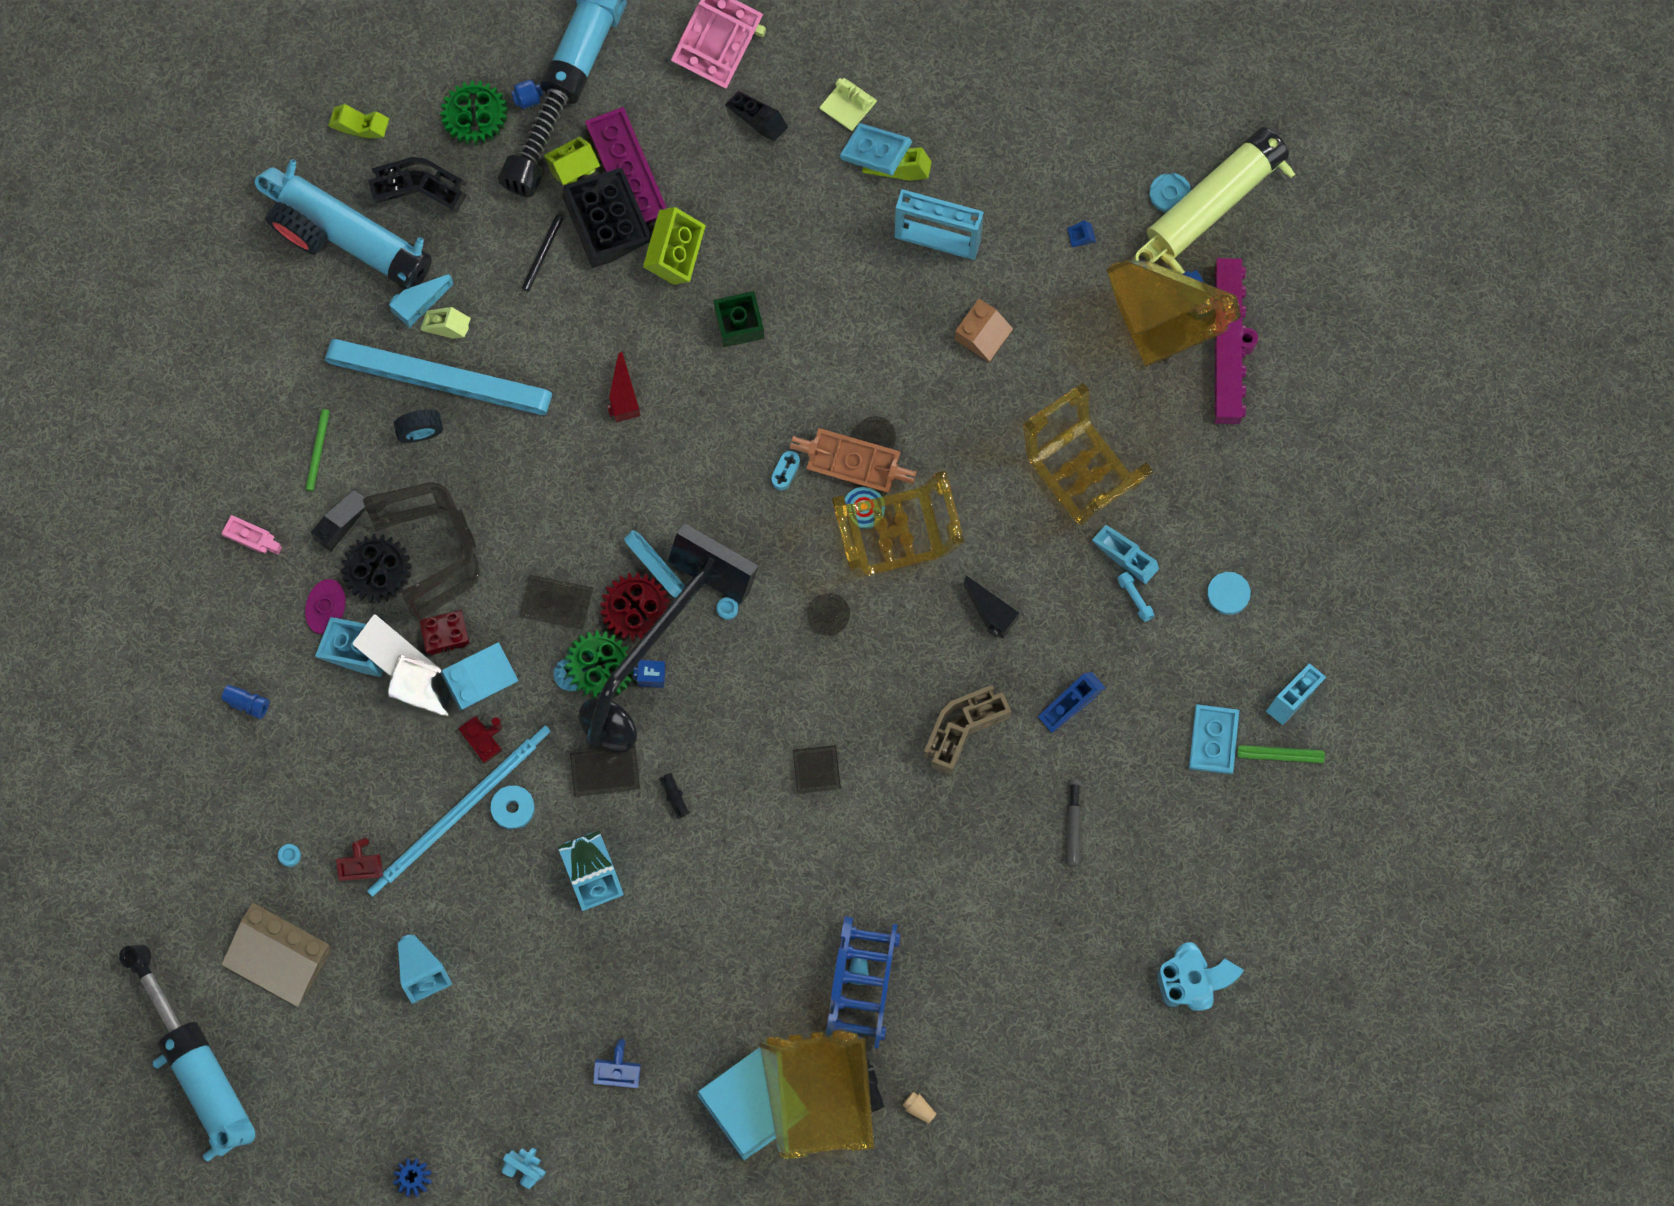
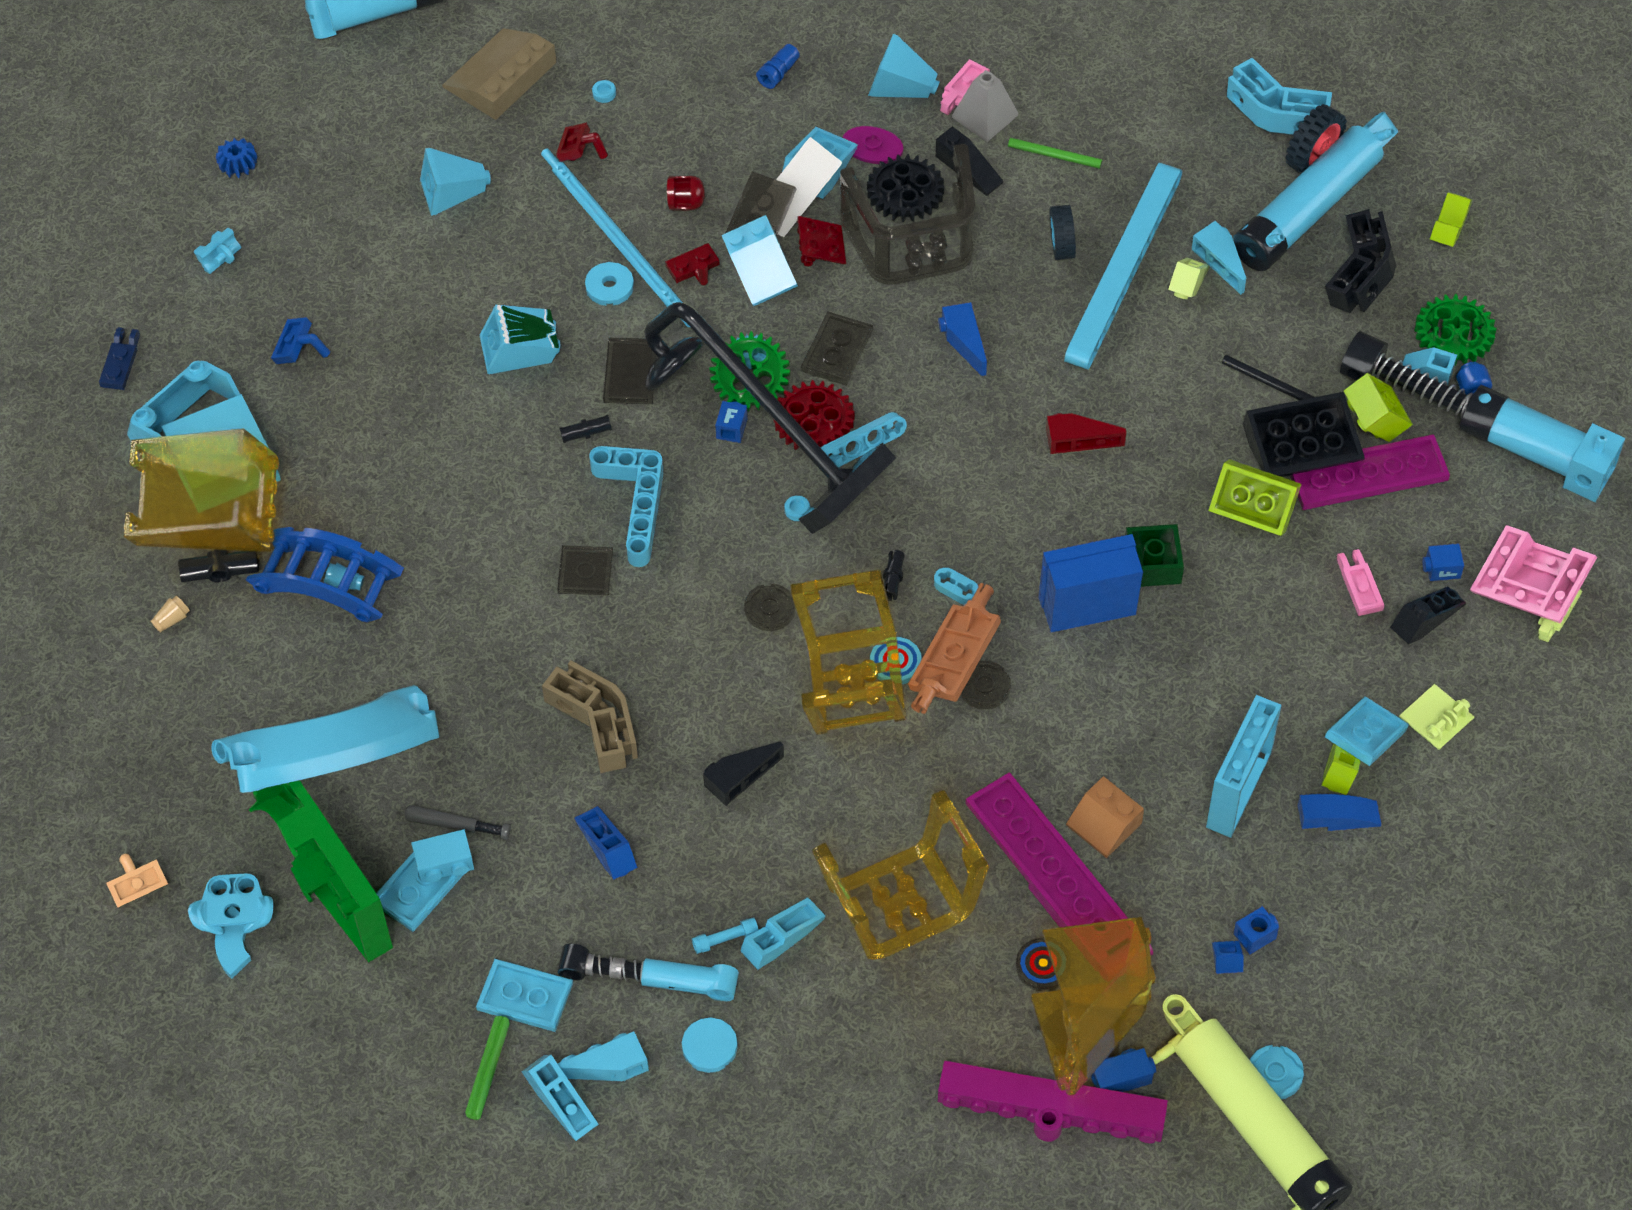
camera: 100 degrees right, 15 degrees down
(245, 590) = (903, 73): none -> medium azure slope
(252, 272) = (1269, 103): none -> medium azure brick
(279, 514) = (985, 107): none -> light grey slope
(408, 755) = (685, 193): none -> dark red helmet
(518, 126) = (1434, 361): none -> medium azure slope
(532, 496) = (963, 334): none -> blue slope
(707, 106) = (1443, 562): none -> blue brick
(729, 1180) = (178, 397): none -> medium azure windscreen
(735, 166) = (1360, 584): none -> bright pink hinge
(739, 724) = (645, 476): none -> medium azure beam
(784, 520) = (893, 574): none -> black pin
(786, 355) = (1090, 583): none -> blue container
(948, 166) = (1337, 812): none -> blue slope
(1043, 357) = (1042, 855): none -> magenta hinge
(1060, 222) = (1254, 940): none -> blue brick
(1084, 930) = (329, 742): none -> medium azure panel
(1114, 362) = (1035, 966): none -> clear smoke tile
(1114, 821) = (442, 856): none -> medium azure brick
(1135, 842) = (409, 899): none -> medium azure tile
(1140, 915) = (326, 867): none -> green piece
(1178, 1066) = (135, 881): none -> light nougat plate
(1180, 644) = (716, 981): none -> piece
(1259, 658) = (610, 1062): none -> medium azure slope

